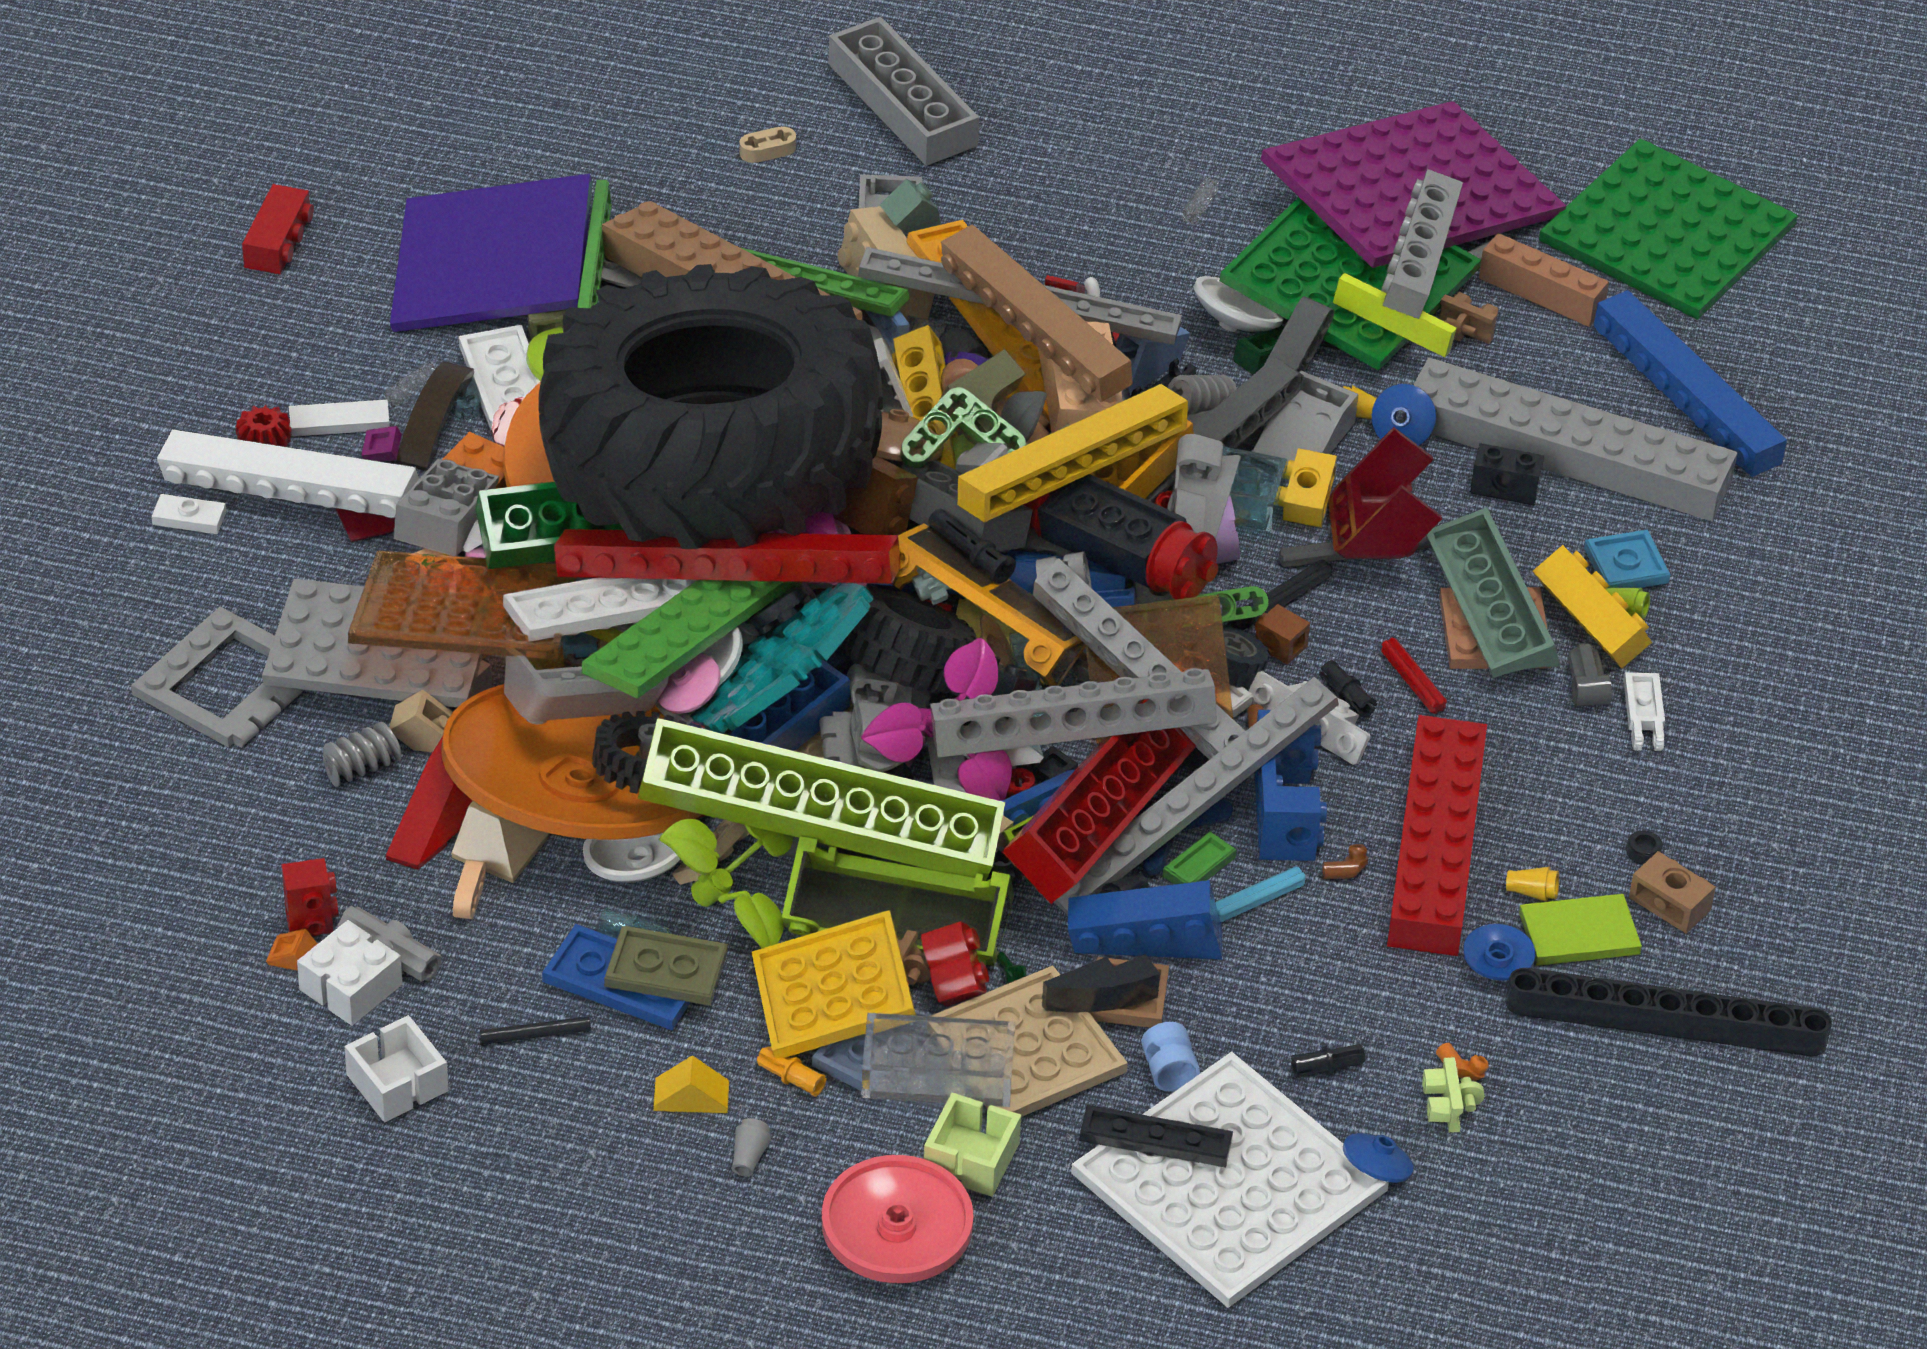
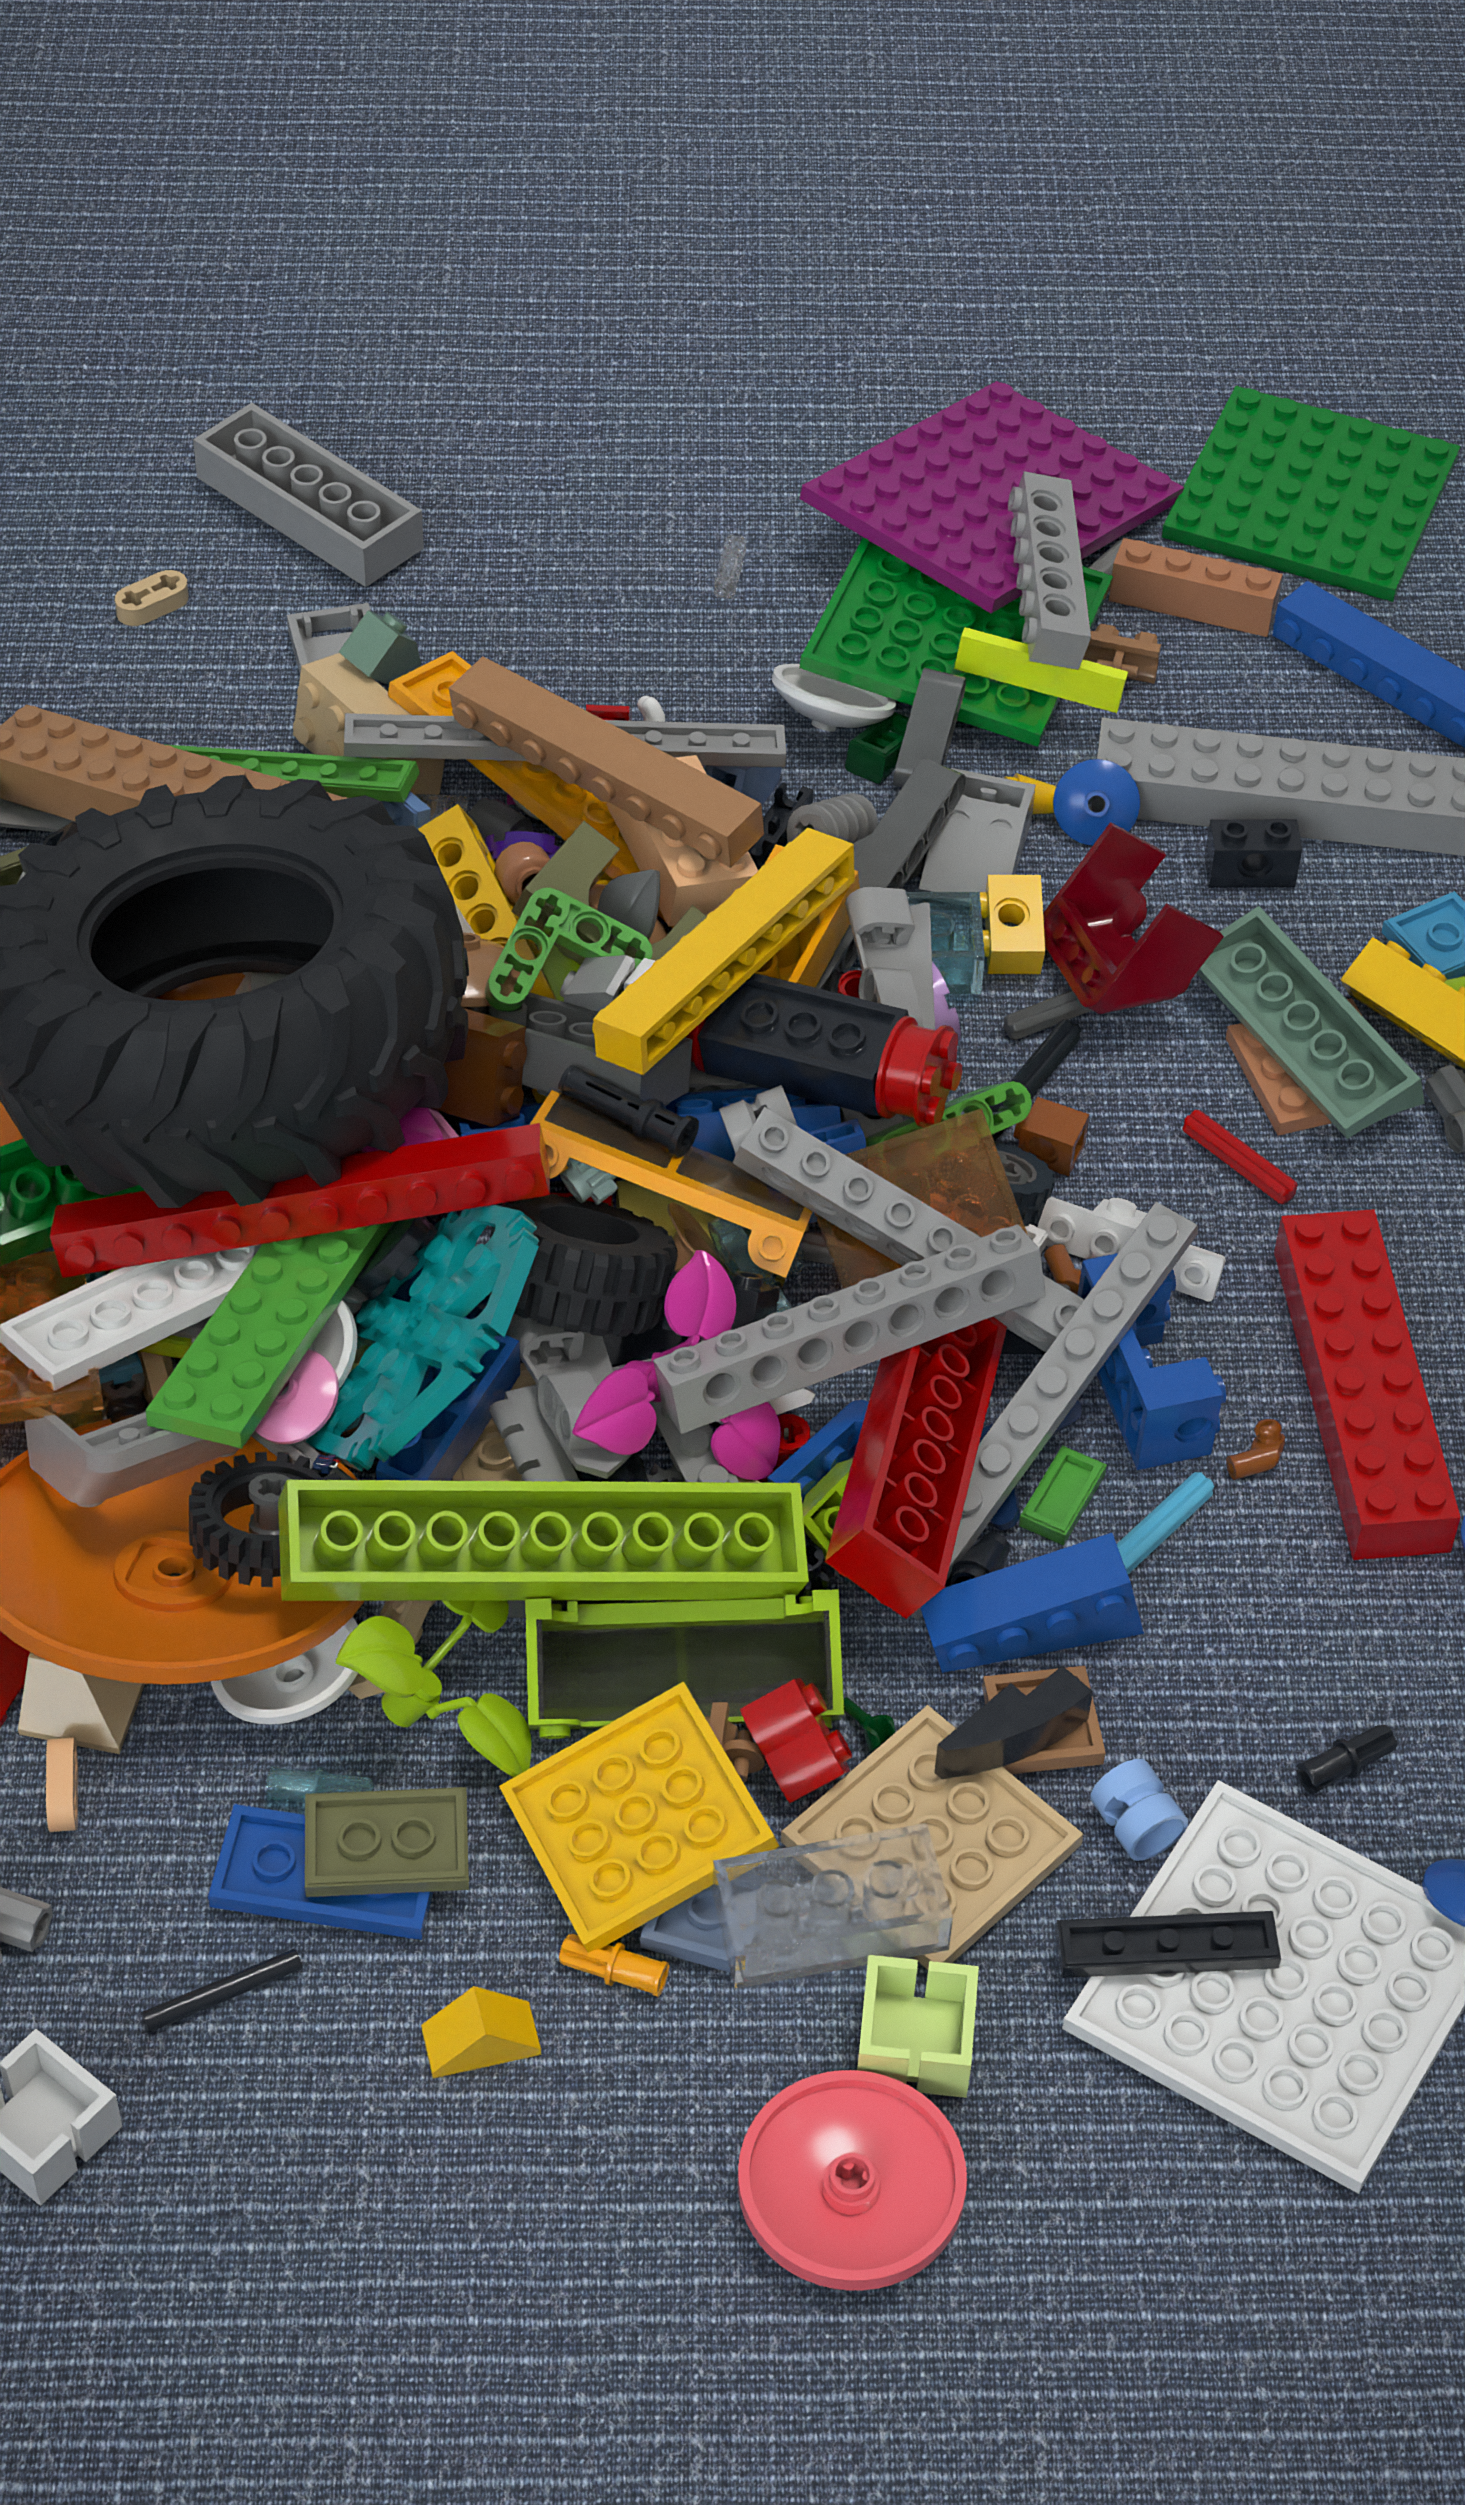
camera: 15 degrees left, 5 degrees up
(750, 1143) = (594, 2105): light grey cone -> none
(1052, 764) = (829, 1400): black plate -> none
(1348, 688) = (1164, 1191): black pin -> none

